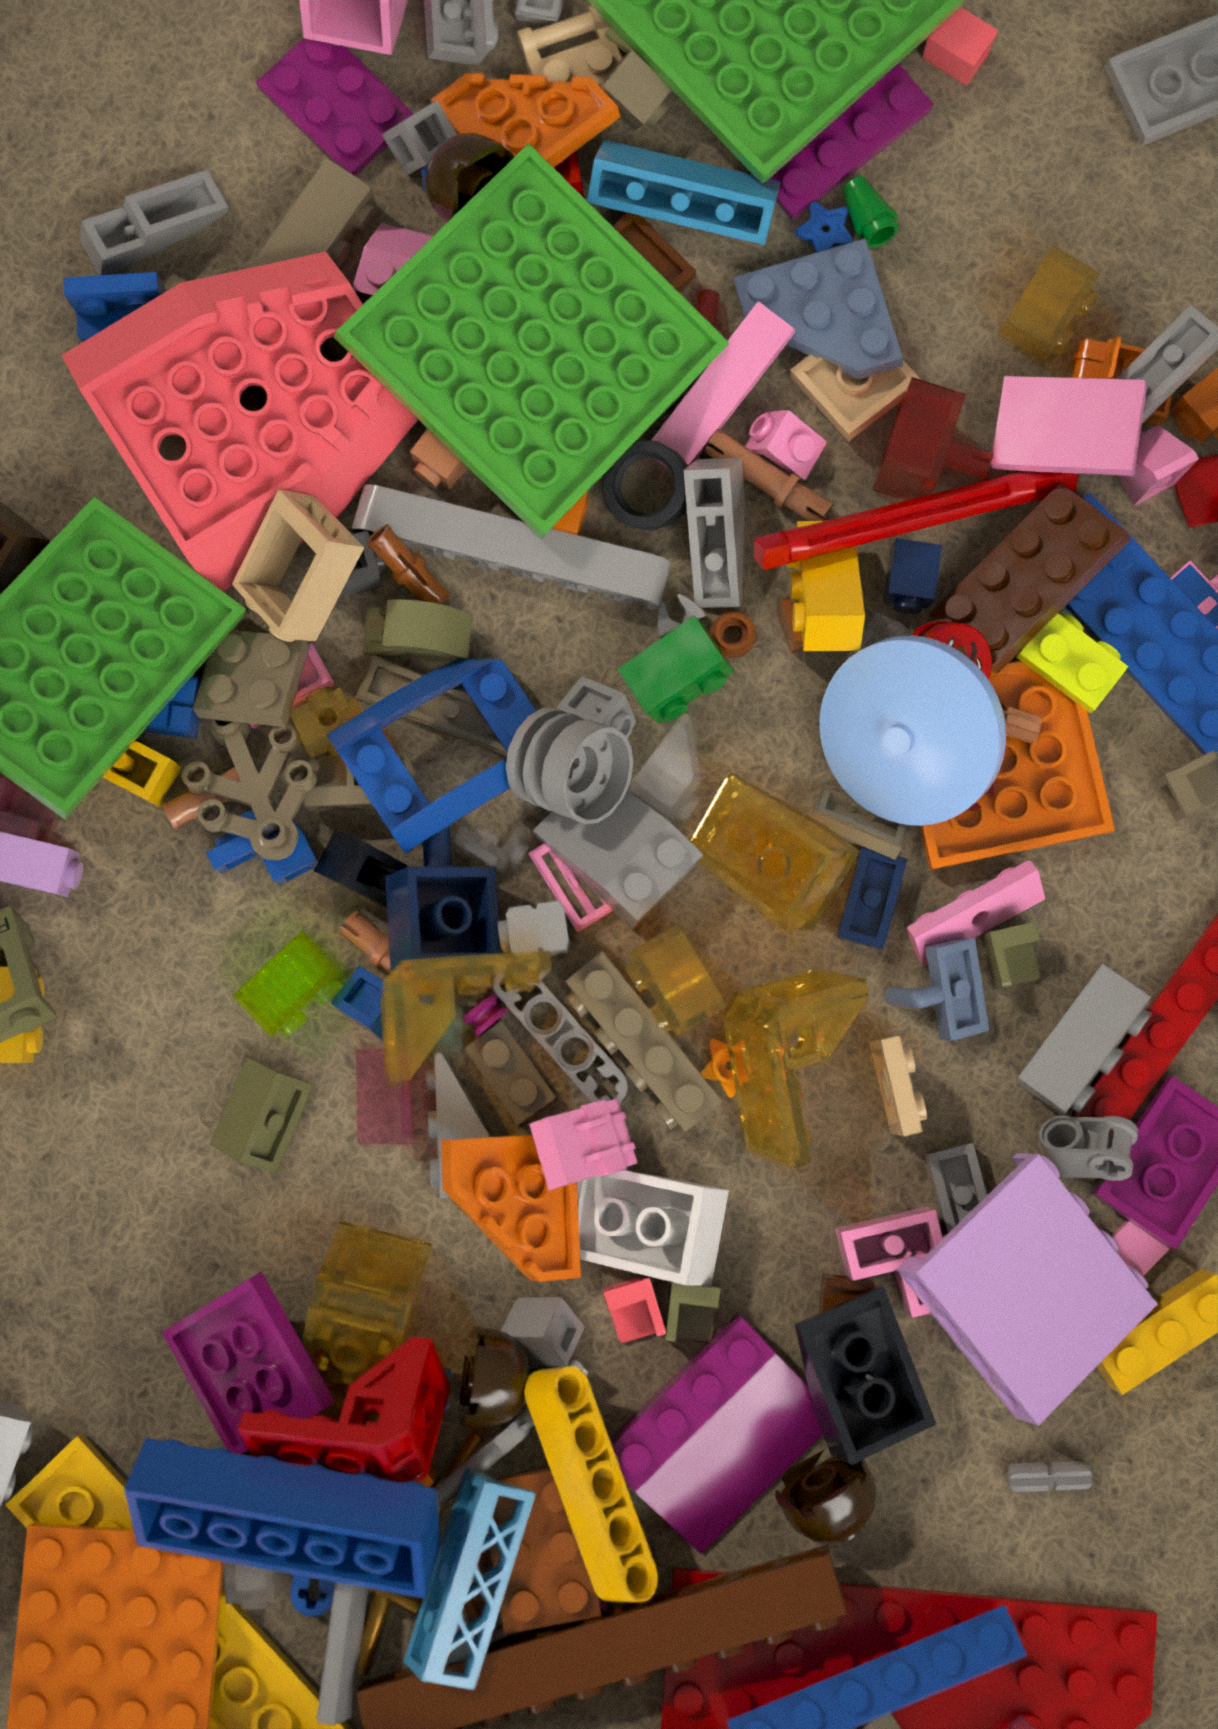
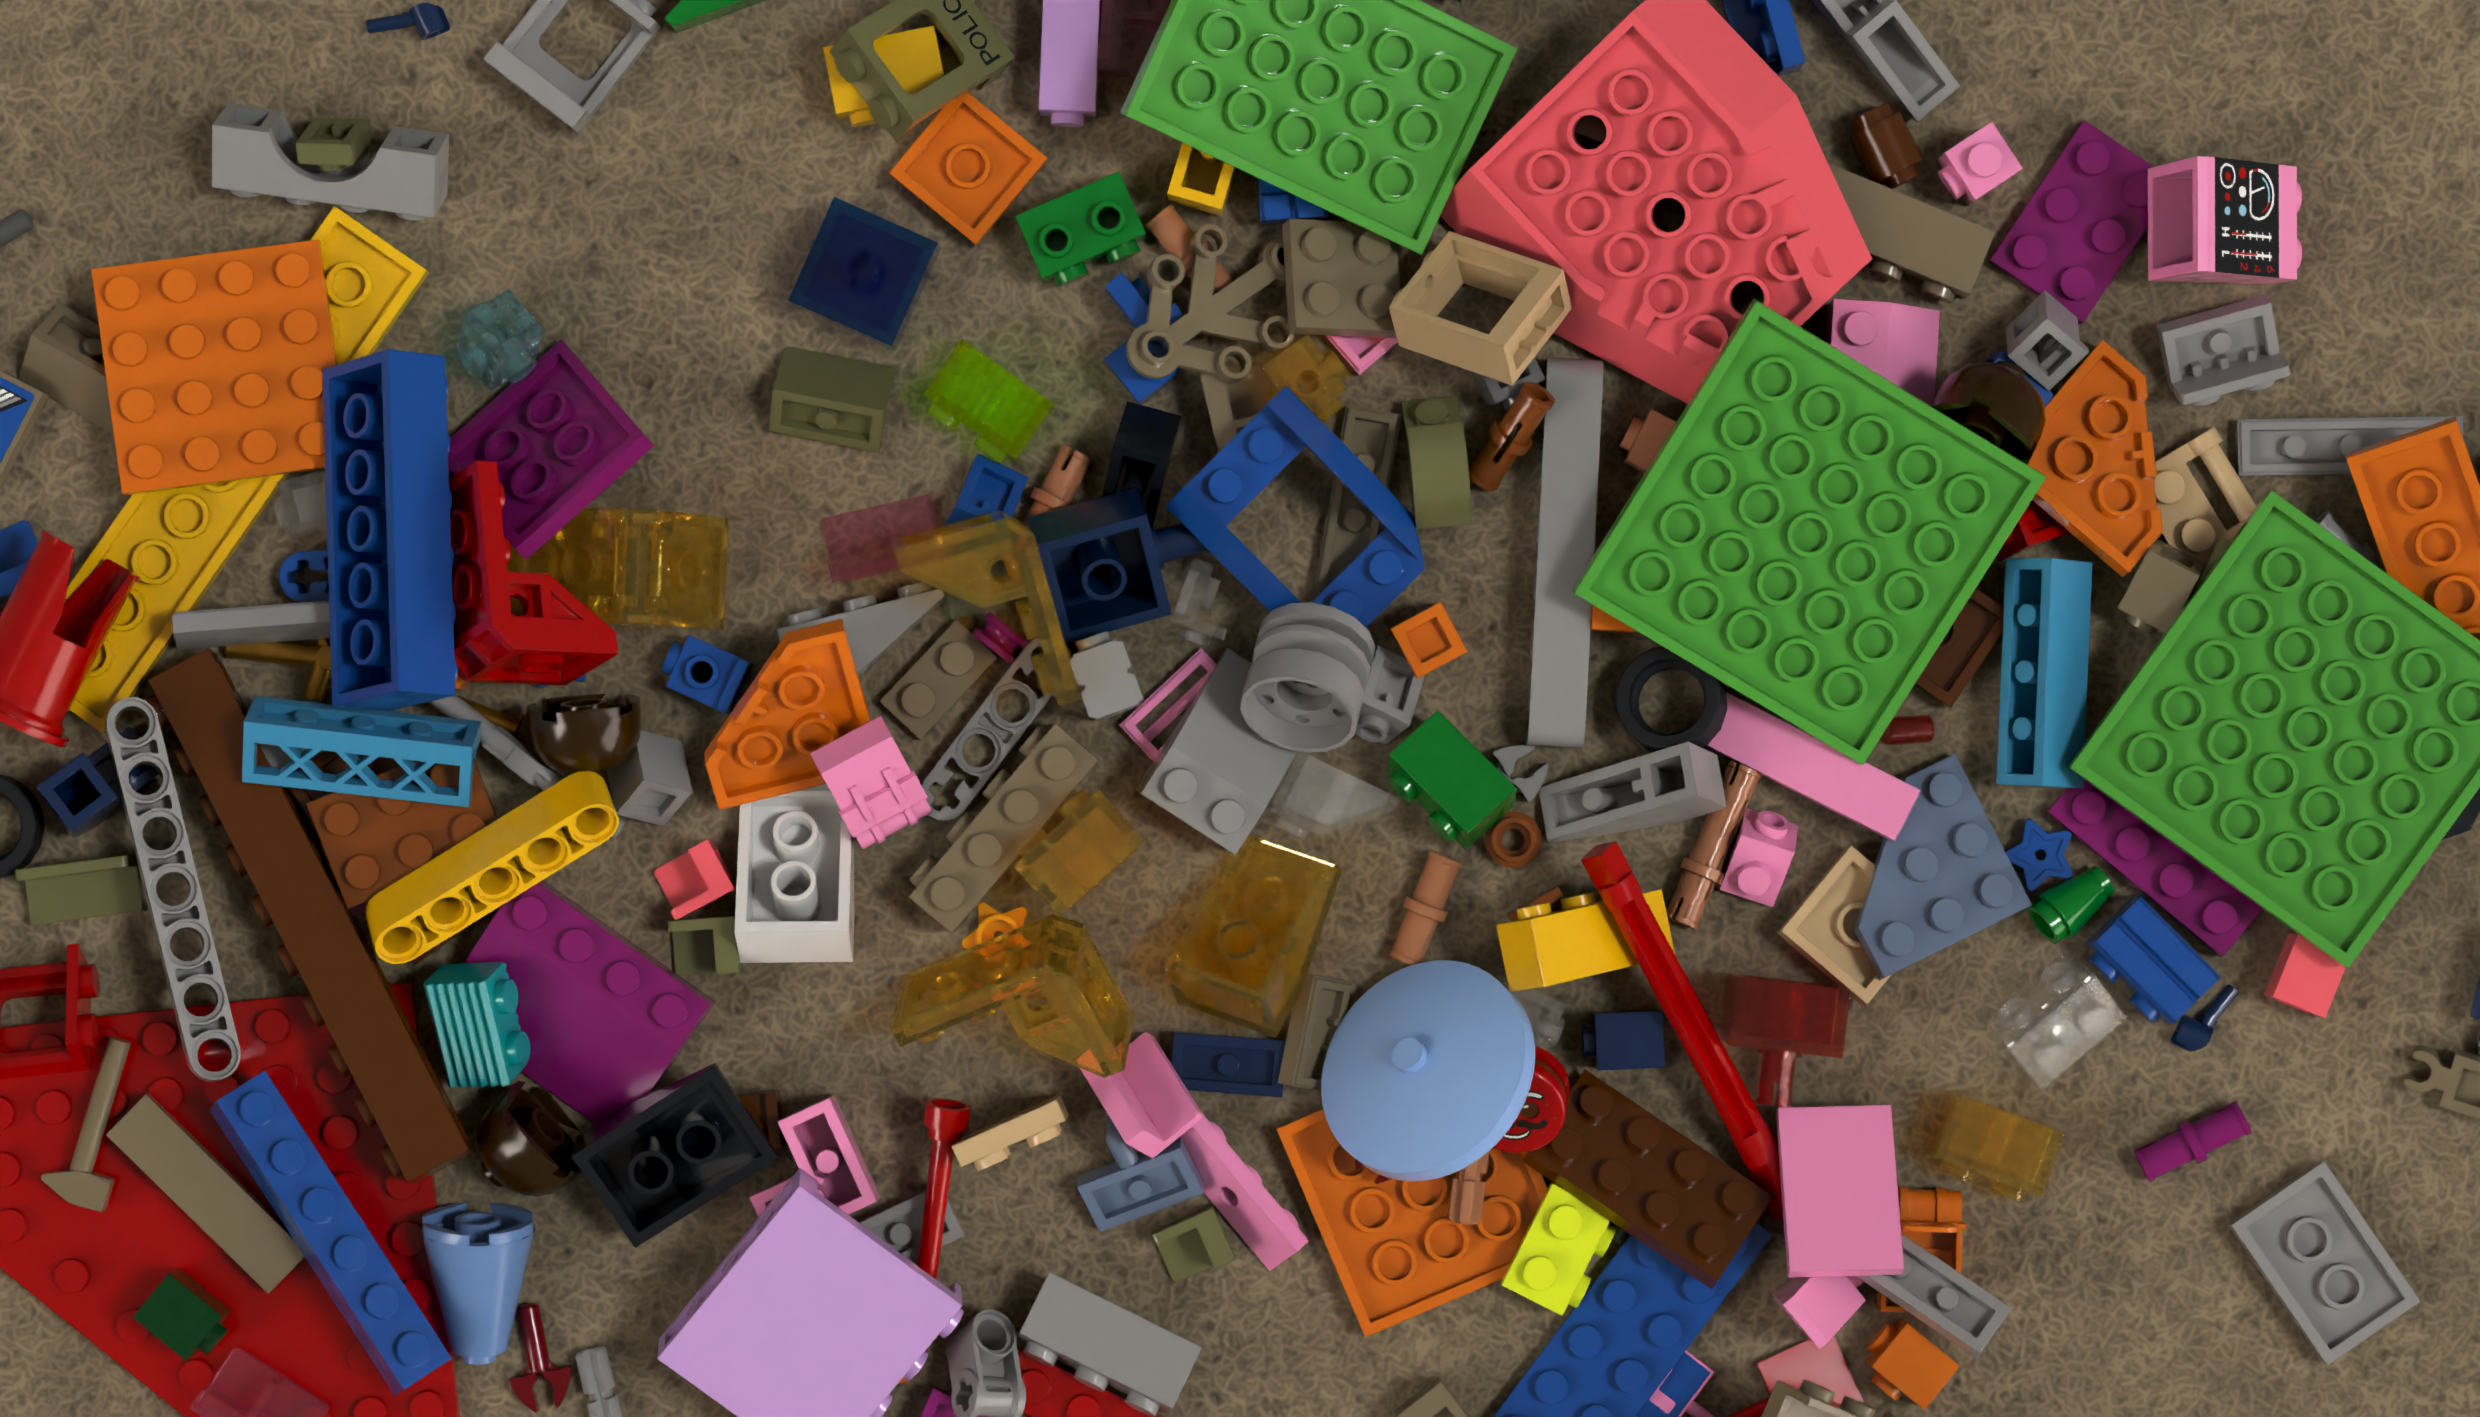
camera: 80 degrees right, 5 degrees up
(94, 963) = (968, 167): none -> orange plate
(148, 1386) = (499, 341): none -> clear light blue brick
(161, 1066) = (864, 274): none -> clear blue brick
(165, 880) = (1082, 229): none -> green brick
(240, 233) = (1886, 146): none -> reddish brown brick
(271, 163) = (1977, 165): none -> bright pink brick
(478, 1252) = (727, 679): none -> blue brick
(558, 665) = (1428, 640): none -> orange panel
(720, 1522) = (477, 1024): none -> teal brick
(775, 714) = (1425, 908): none -> nougat pin
(880, 1138) = (945, 1124): none -> red piece
(893, 967) = (1146, 1098): none -> bright pink panel
(926, 158) = (2151, 962): none -> blue brick
(930, 1563) = (478, 1273): none -> medium blue cone
(957, 242) = (2056, 1020): none -> clear bracket
(988, 136) = (2197, 1034): none -> dark blue hand
(1012, 1524) = (538, 1361): none -> dark red bar
(1073, 157) = (2192, 1141): none -> magenta pin

